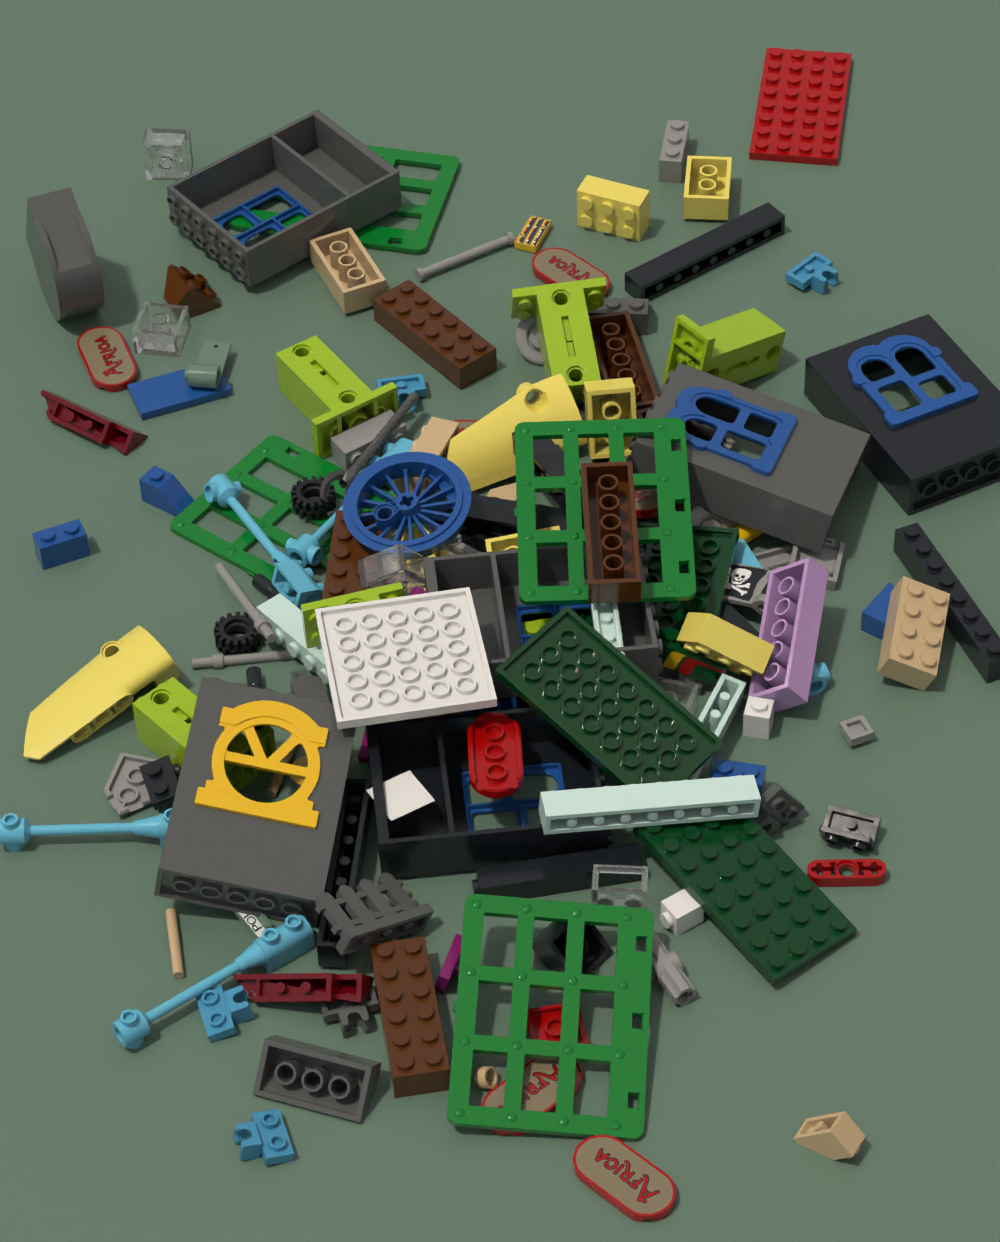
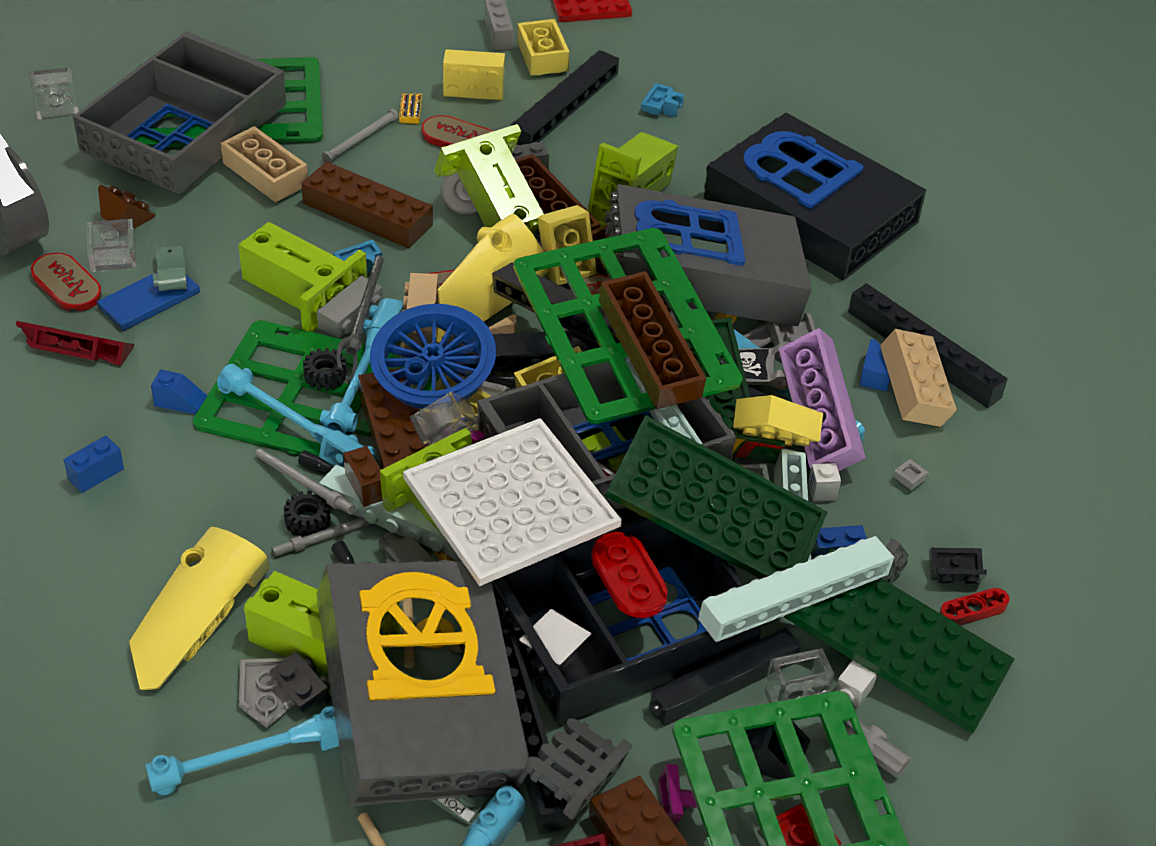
camera: 25 degrees left, 0 degrees up
(294, 595) = (363, 475): none -> reddish brown brick

